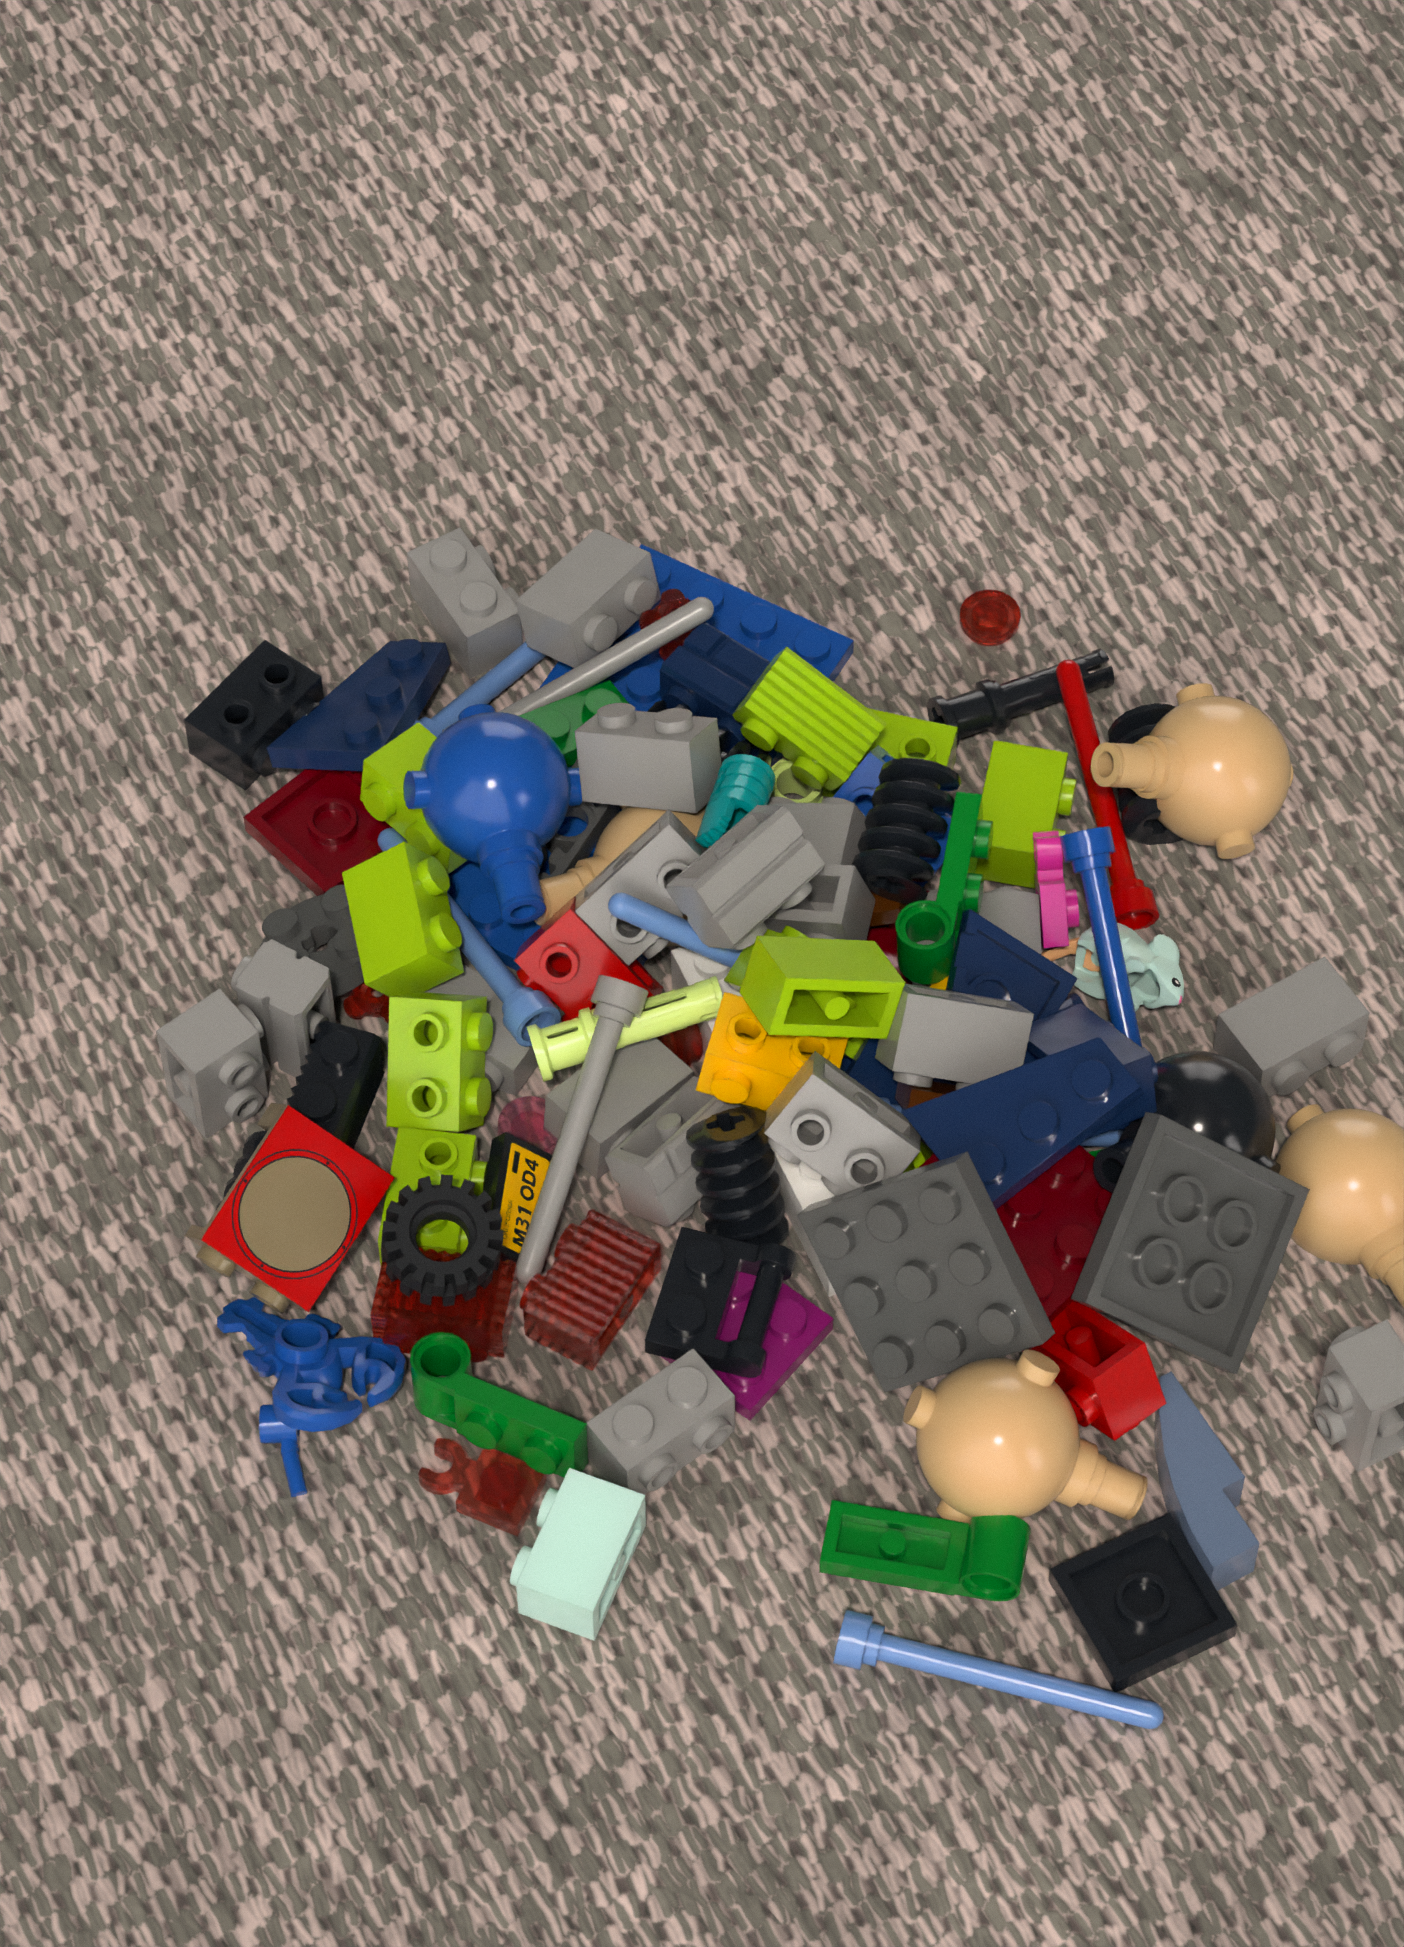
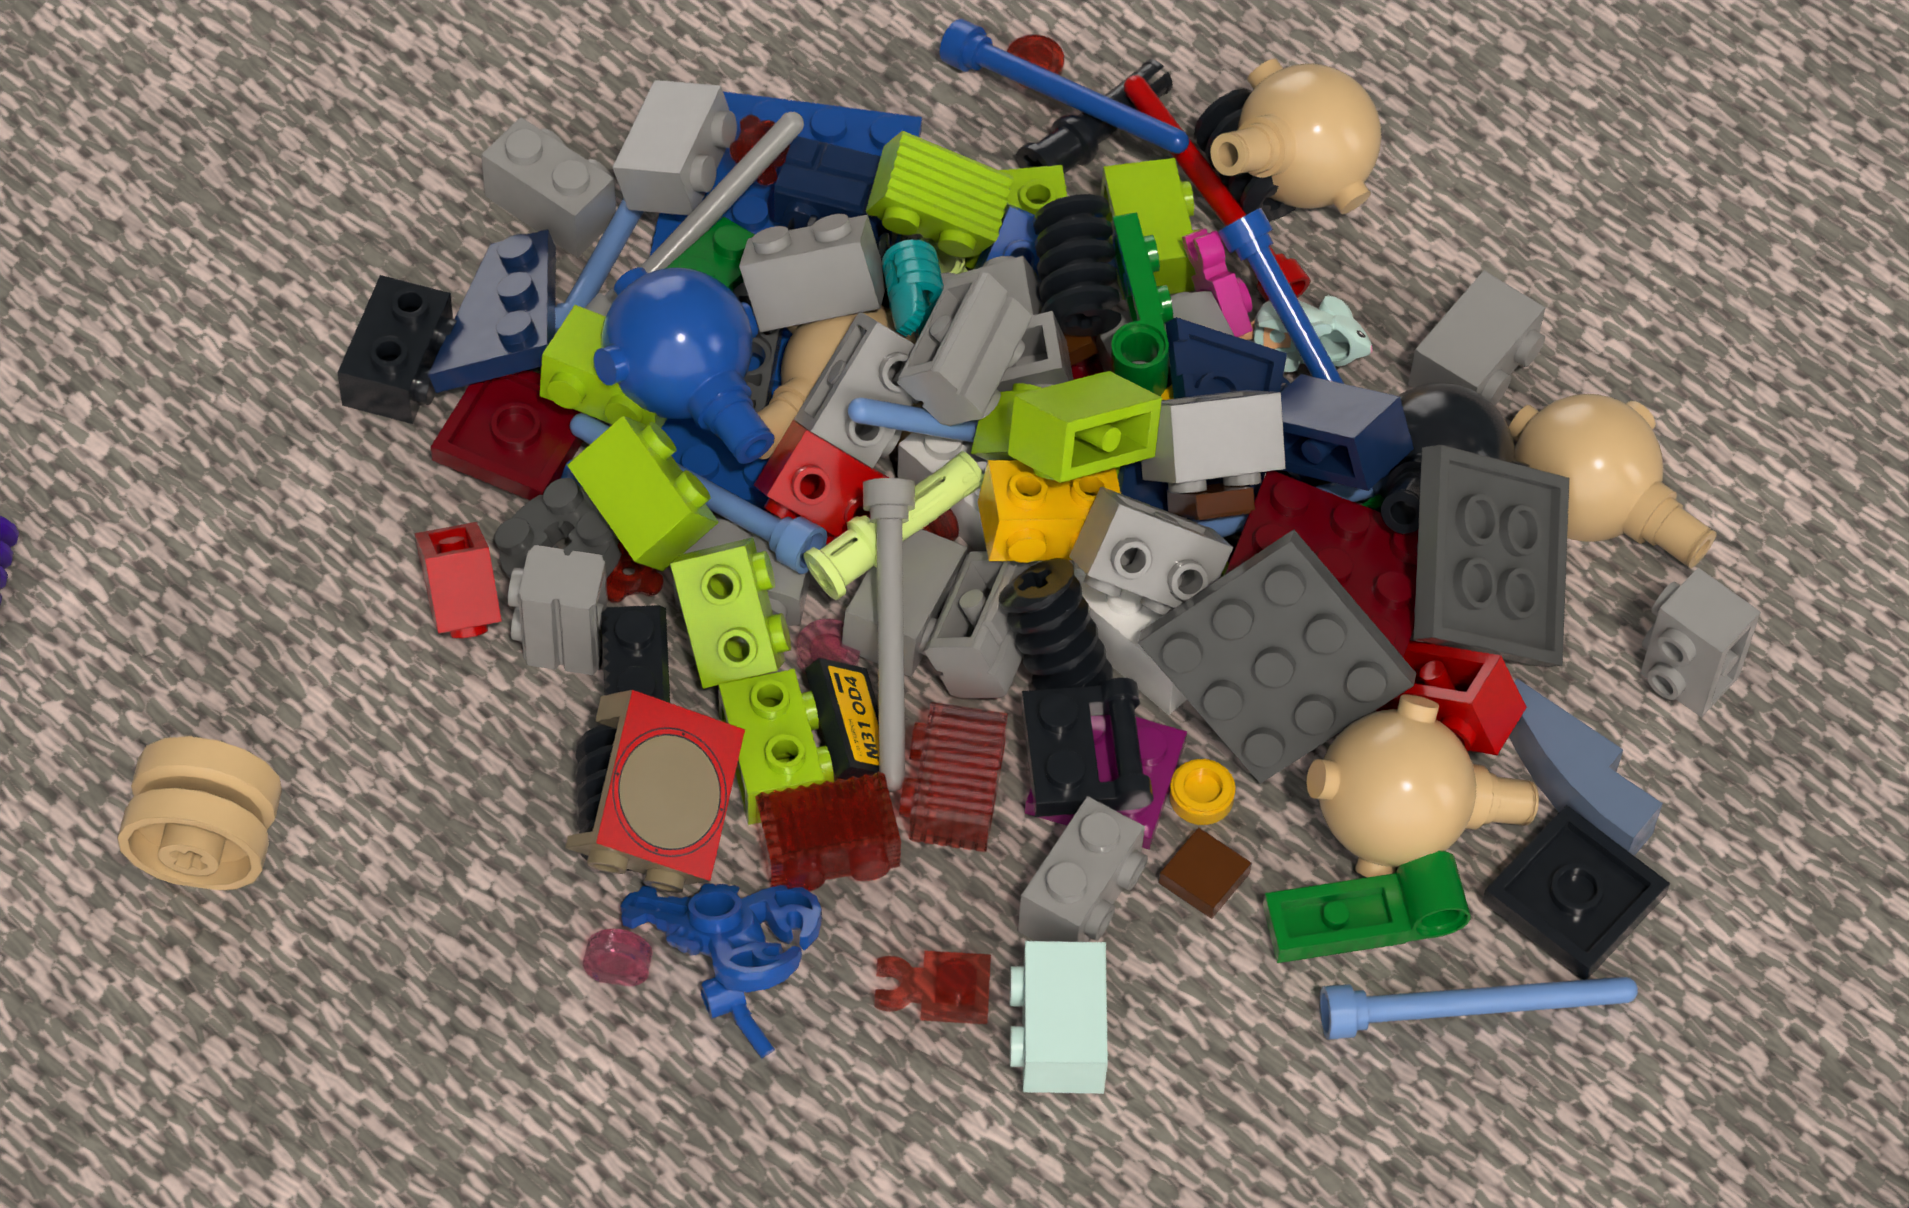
camera: 25 degrees left, 0 degrees up
(196, 1356) = (617, 957): none -> clear pink tile
(209, 945) = (459, 579): none -> slope
(214, 1063) = (517, 681): light grey brick -> none
(446, 1203) = (824, 738): black tyre -> none
(490, 1414) = (920, 918): green plate -> none
(790, 1461) = (1205, 873): none -> reddish brown tile
(824, 1381) = (1202, 791): none -> yellow tile
(930, 586) = (970, 48): none -> blue piece
(1028, 1115) = (1316, 482): dark blue wing -> none

